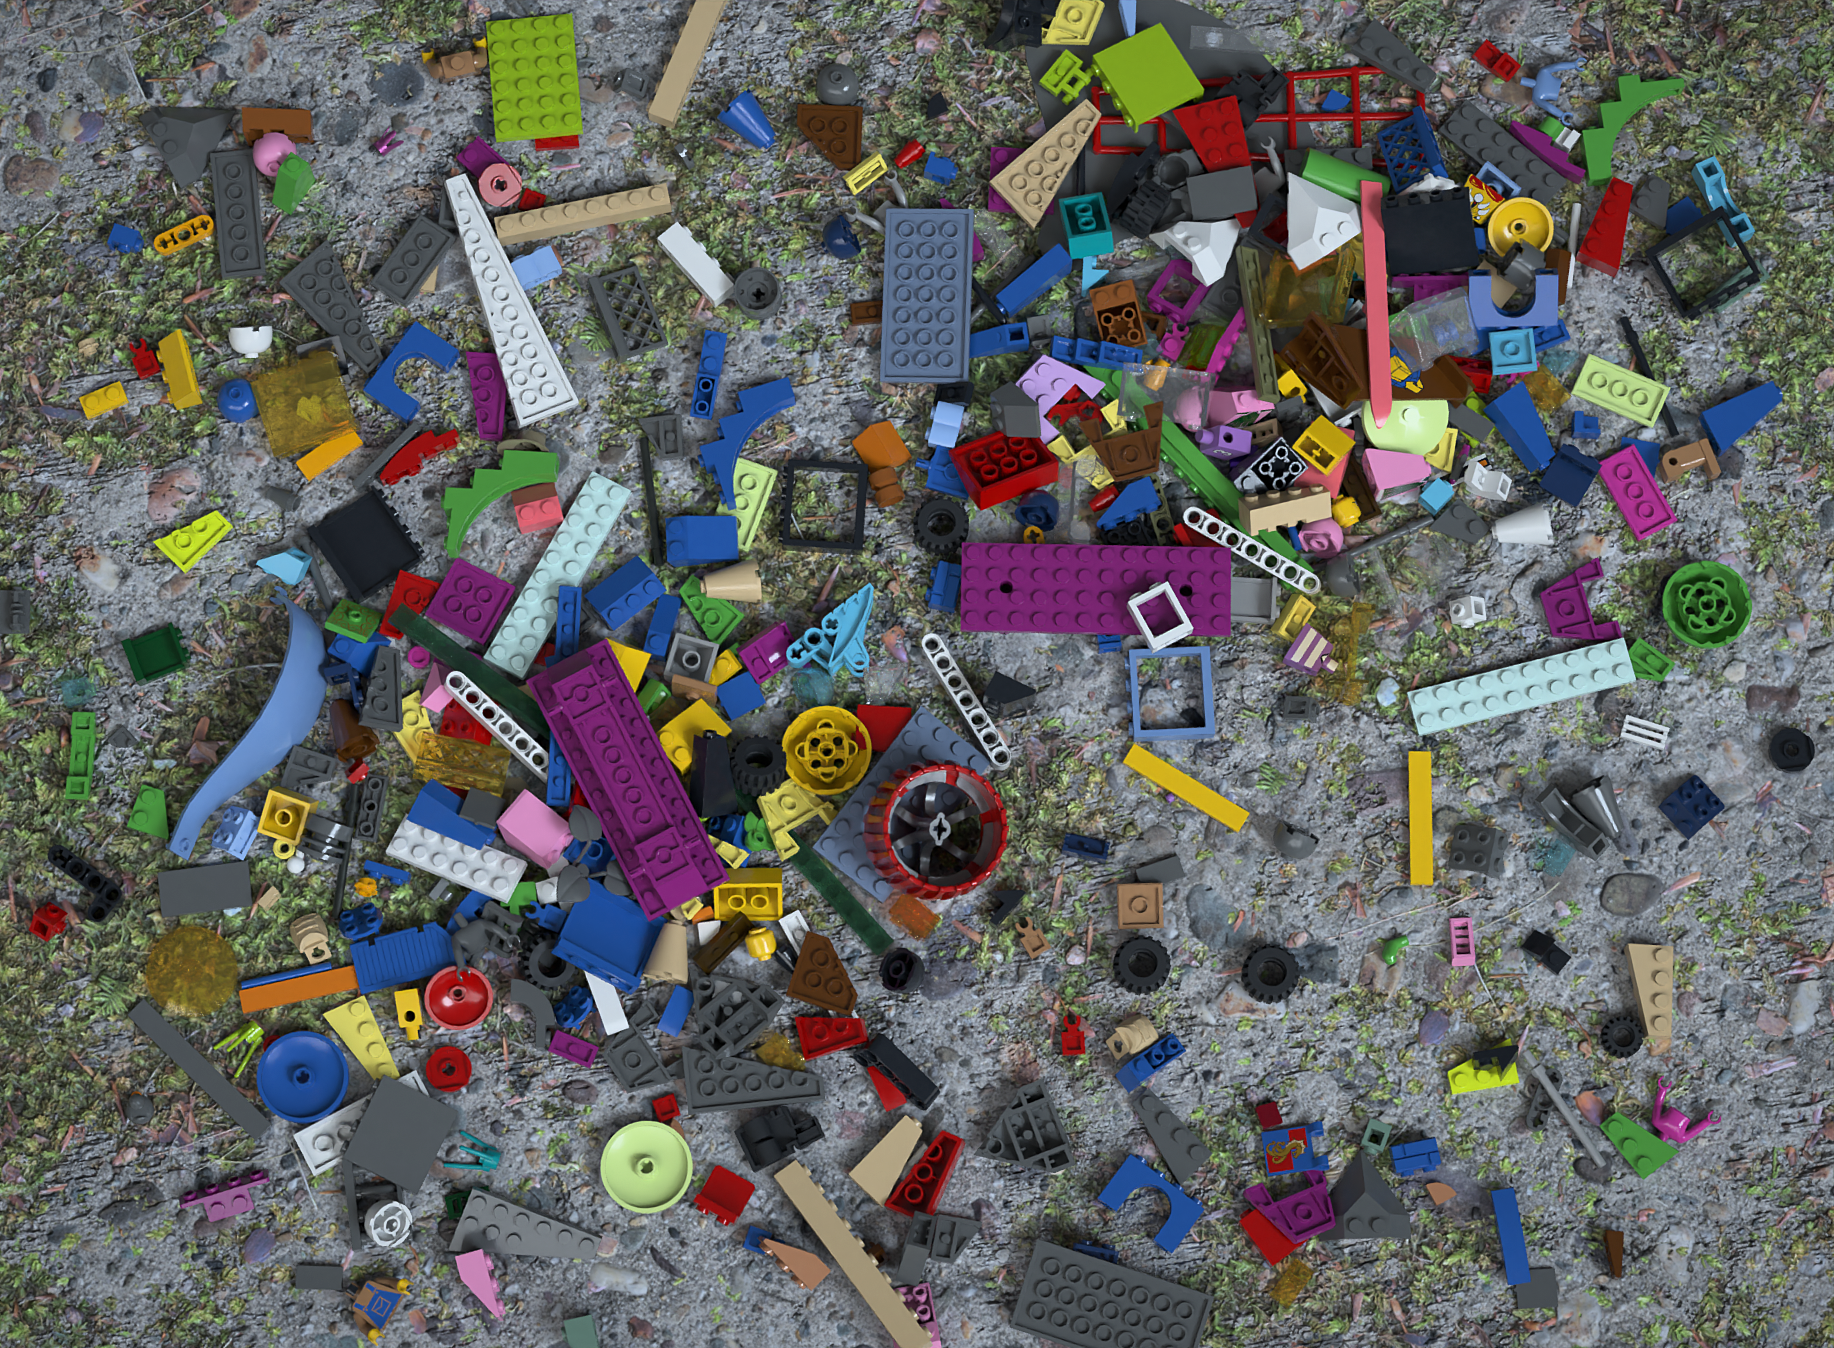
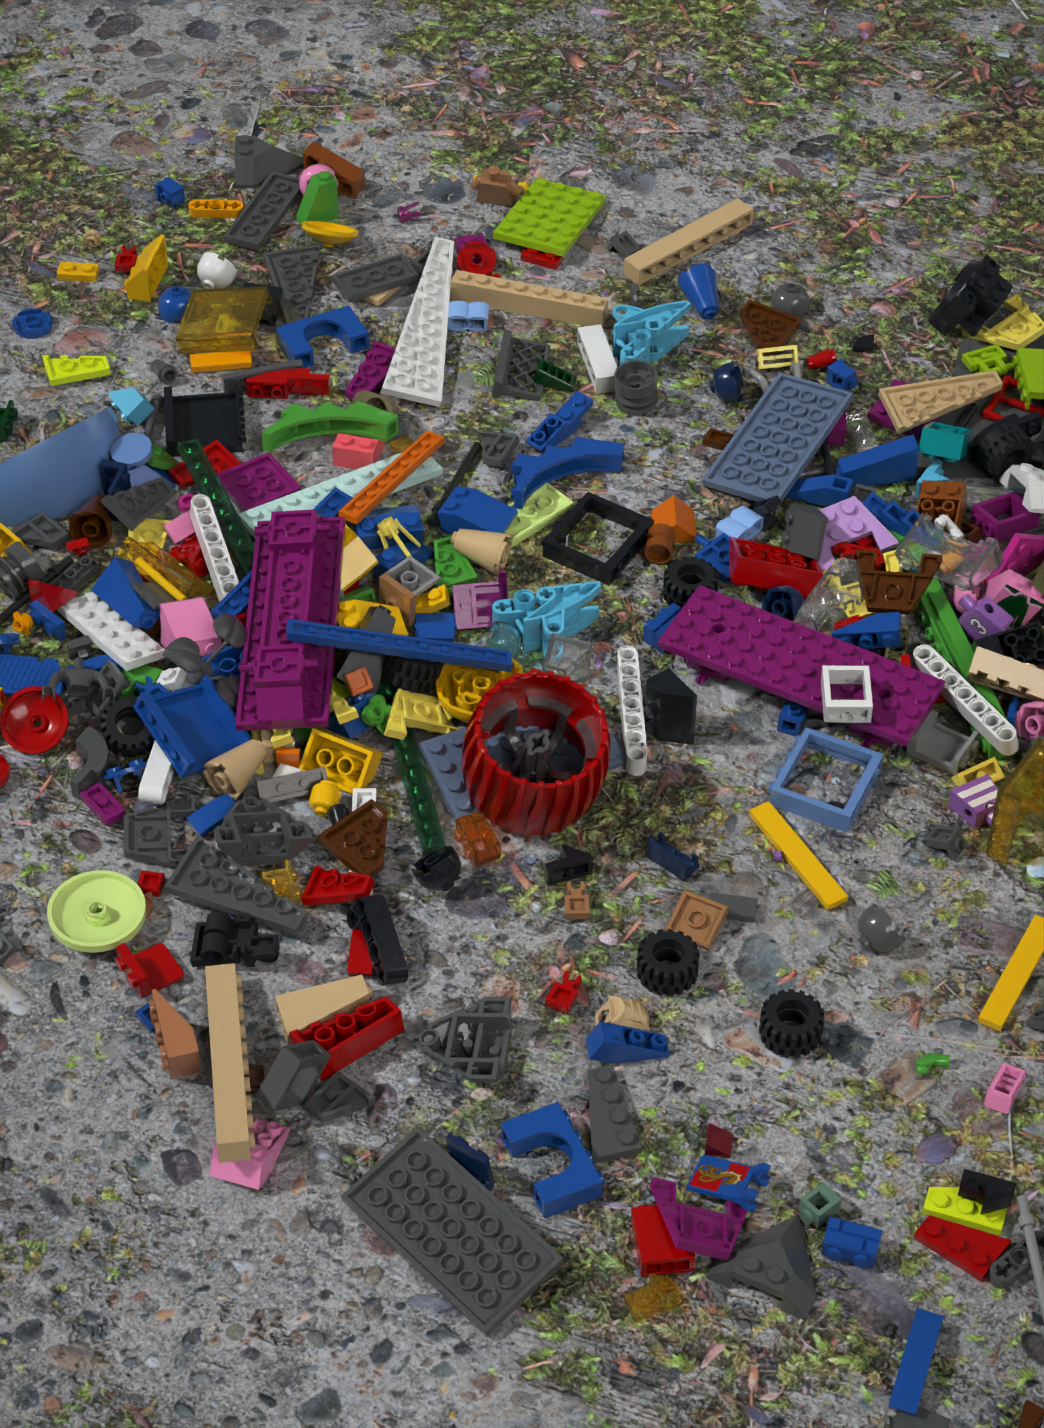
camera: 30 degrees right, 30 degrees down
(107, 496) = (32, 323): none -> blue tile
(328, 217) = (329, 232): none -> yellow dish
(340, 639) = (132, 449): none -> medium blue tile
(380, 849) = (50, 595): none -> red slope
(474, 787) = (157, 577): none -> yellow bar
(575, 478) = (401, 444): none -> clear yellow tile
(599, 538) = (391, 477): none -> orange tile
(640, 612) = (389, 528): none -> light yellow plant
(655, 321) = (553, 376): none -> dark green slope
(721, 809) = (358, 681): none -> orange tile
(725, 212) = (648, 331): none -> medium azure piece
(747, 768) = (398, 645): none -> blue plate
(1143, 340) = (949, 525): none -> white arm
(1440, 1192) = (861, 1291): nougat tile -> none
(1495, 1110) = (961, 1245): none -> red wing

